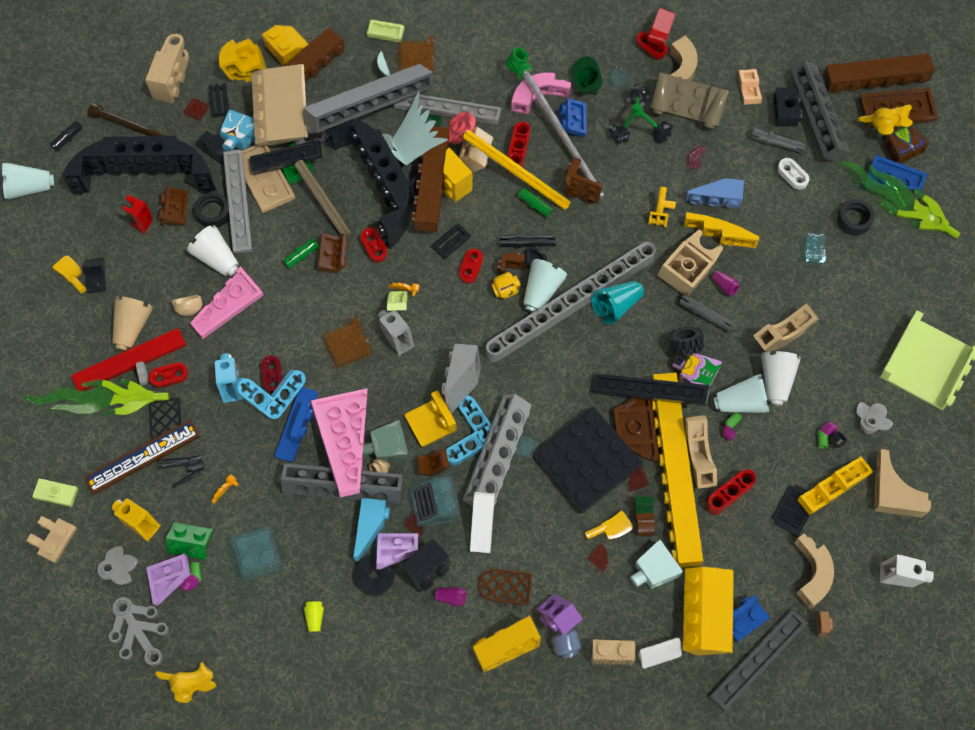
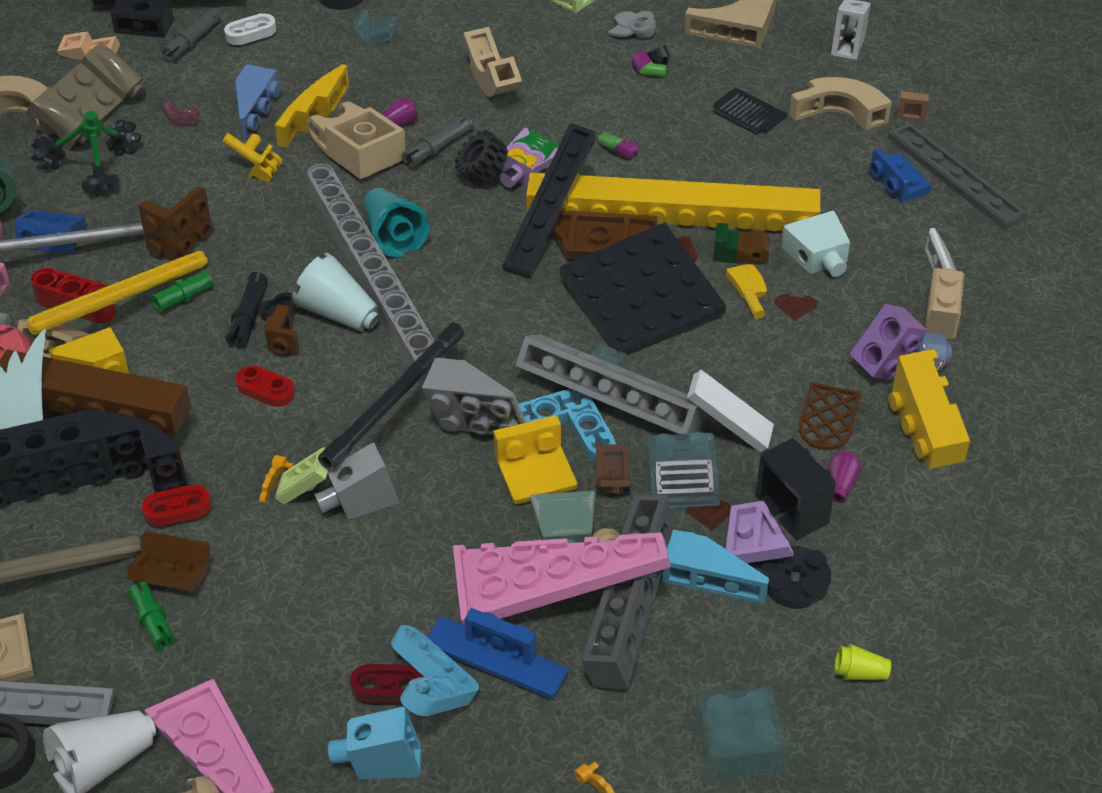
camera: 80 degrees left, 20 degrees down
(348, 343) = (357, 564): clear orange piece -> none
(467, 236) = (218, 422): black tile -> none
(502, 349) = (343, 444): none -> black piece
(506, 285) = (320, 342): yellow head -> none
(700, 460) = (684, 167): tan arch -> none
(708, 611) = (892, 195): yellow slope -> none
(737, 486) = (717, 155): red beam -> none
(745, 397) = (583, 104): light aqua cone -> none
(779, 375) = (558, 83): white cone -> none
(835, 485) = (719, 65): yellow slope -> none

